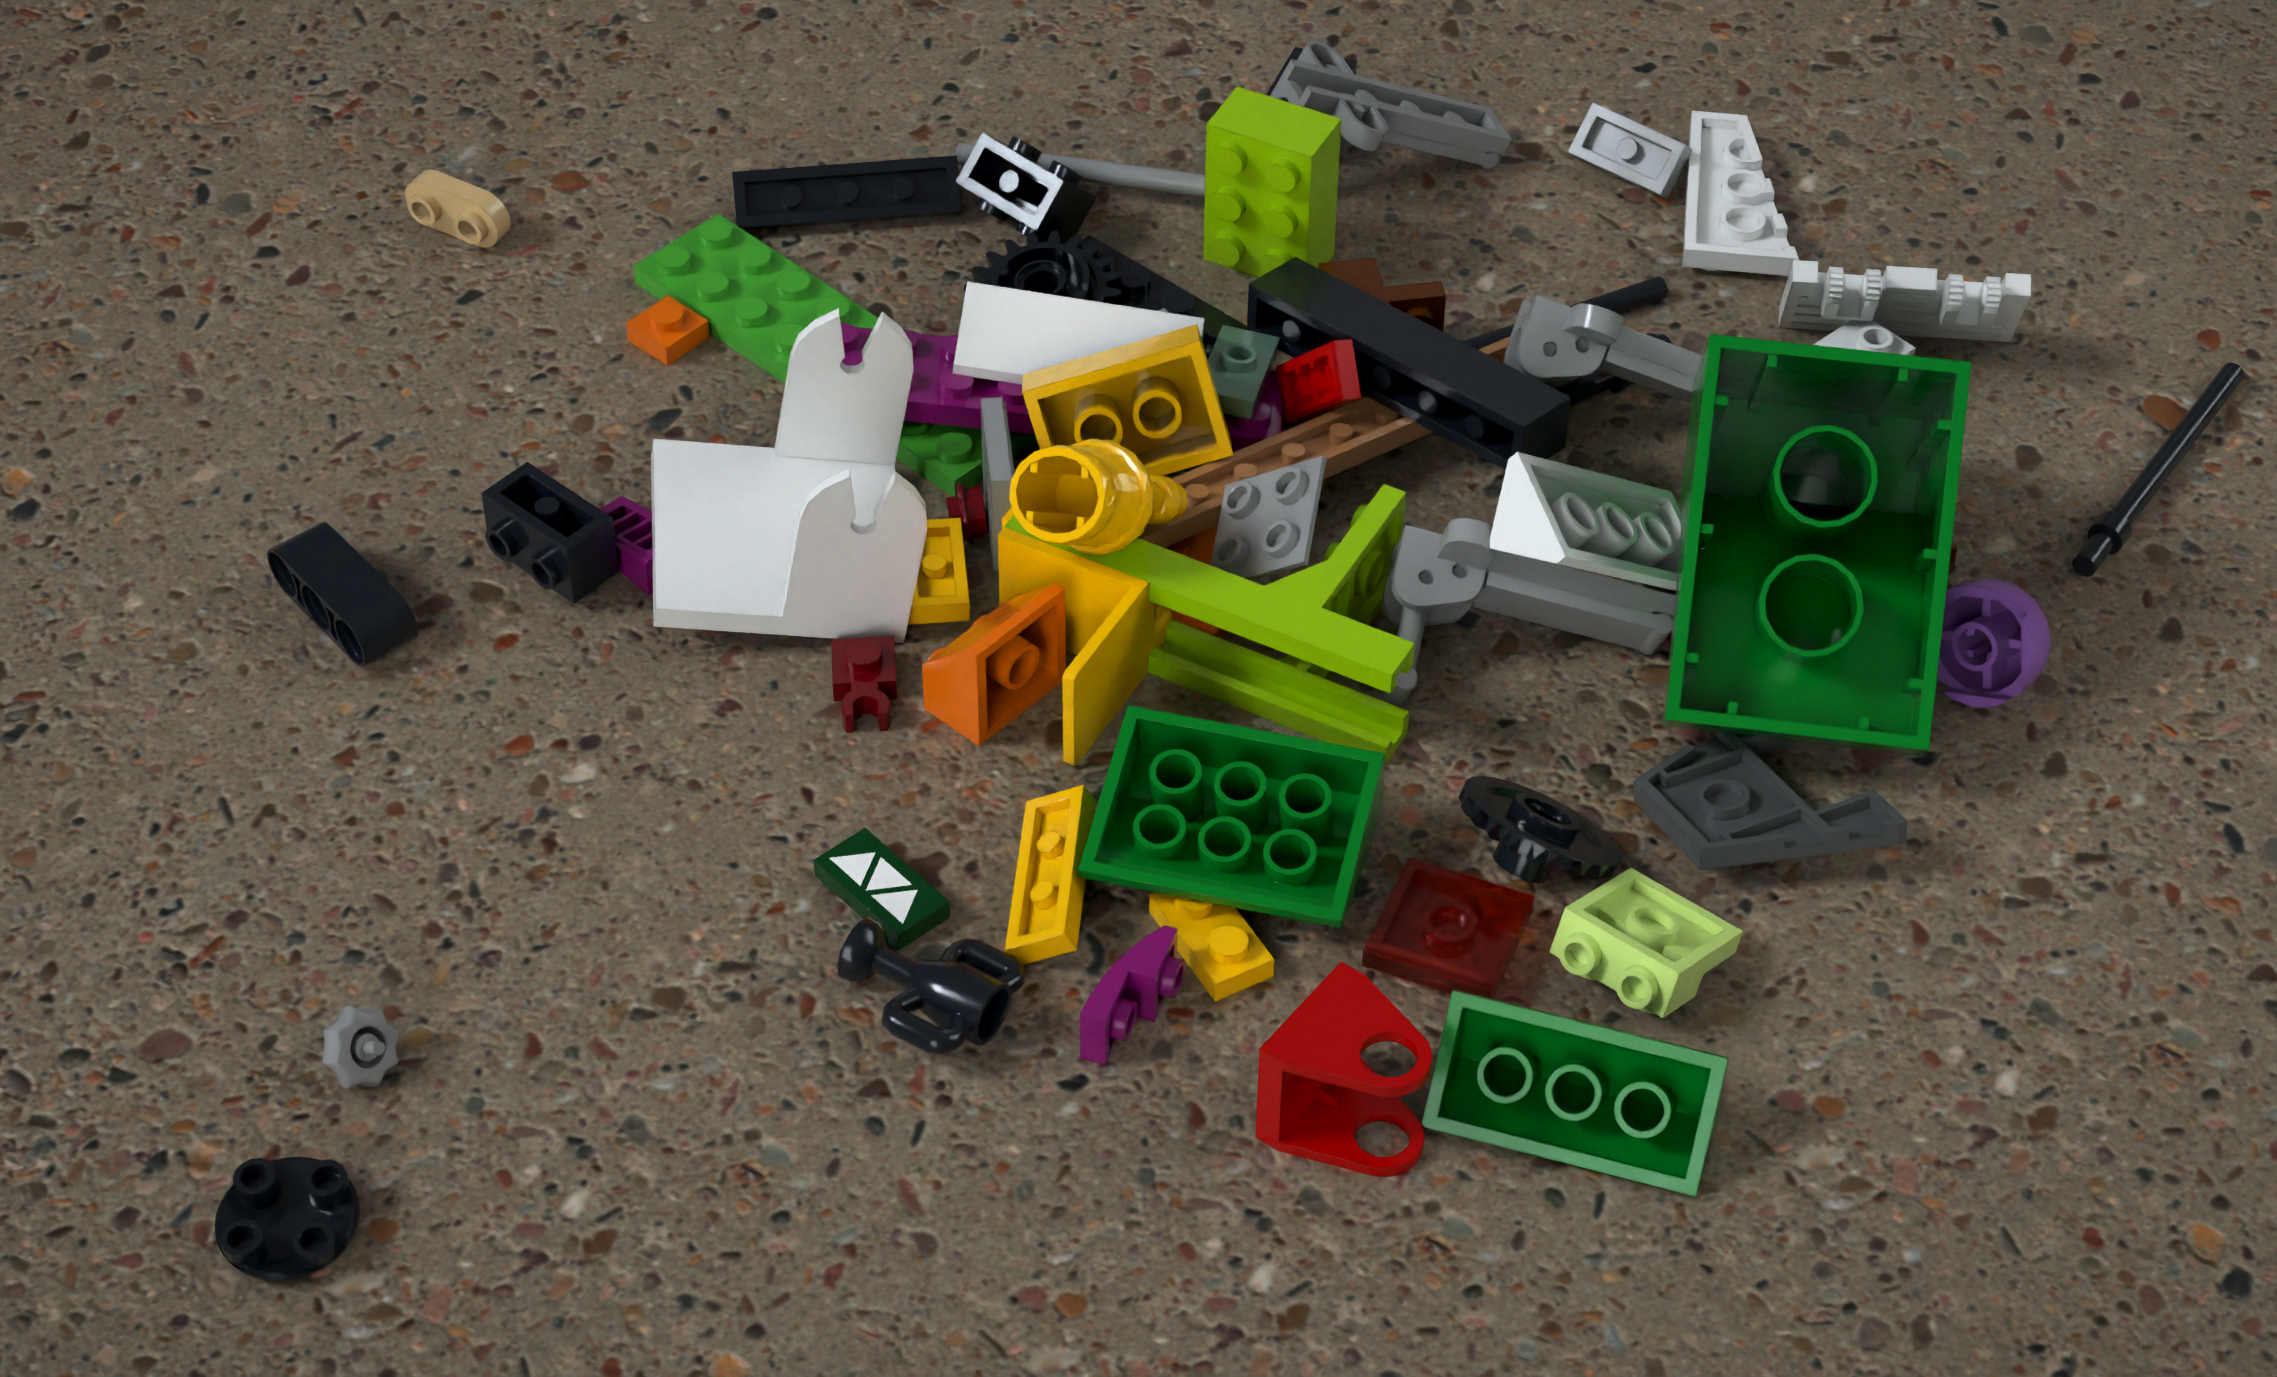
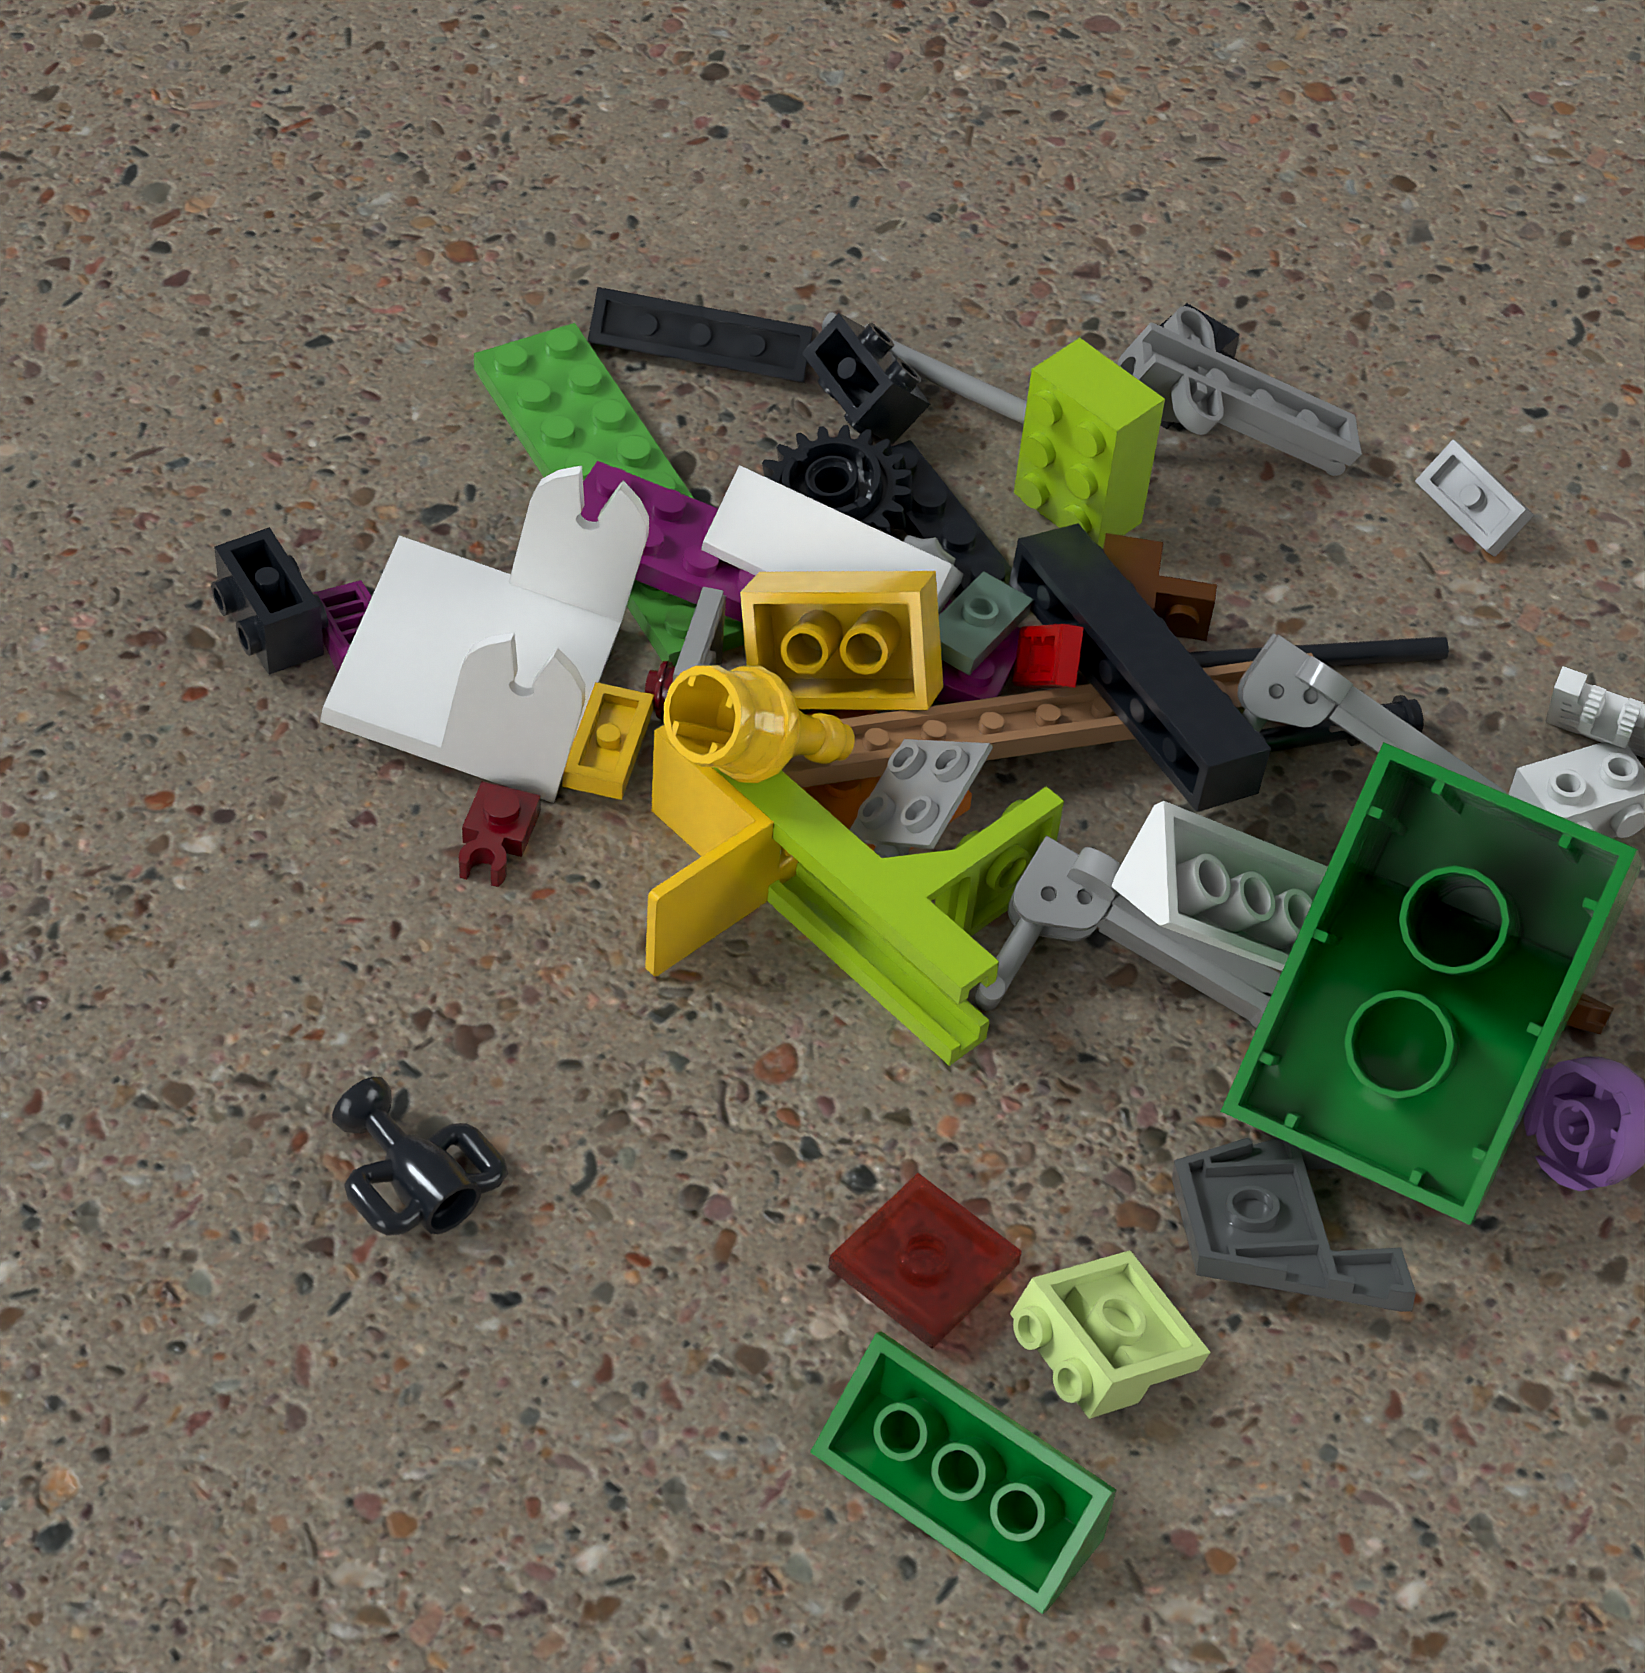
camera: 15 degrees right, 5 degrees up
(342, 594) = (64, 605): black beam -> none
(457, 208) = (339, 253): tan plate -> none
(667, 330) = (478, 426): orange plate -> none
(882, 888) = (415, 1047): dark green tile -> none
(999, 664) = (616, 856): orange slope -> none
(1047, 882) = (572, 1084): yellow plate -> none
(1130, 990) = (598, 1220): magenta slope -> none
(1214, 943) = (700, 1191): yellow plate -> none
(1235, 816) = (765, 1084): green slope -> none
(1320, 1089) = (728, 1379): red hose -> none
(1537, 832) = (1053, 1184): black gear -> none
(1730, 201) = (1552, 578): white wing -> none

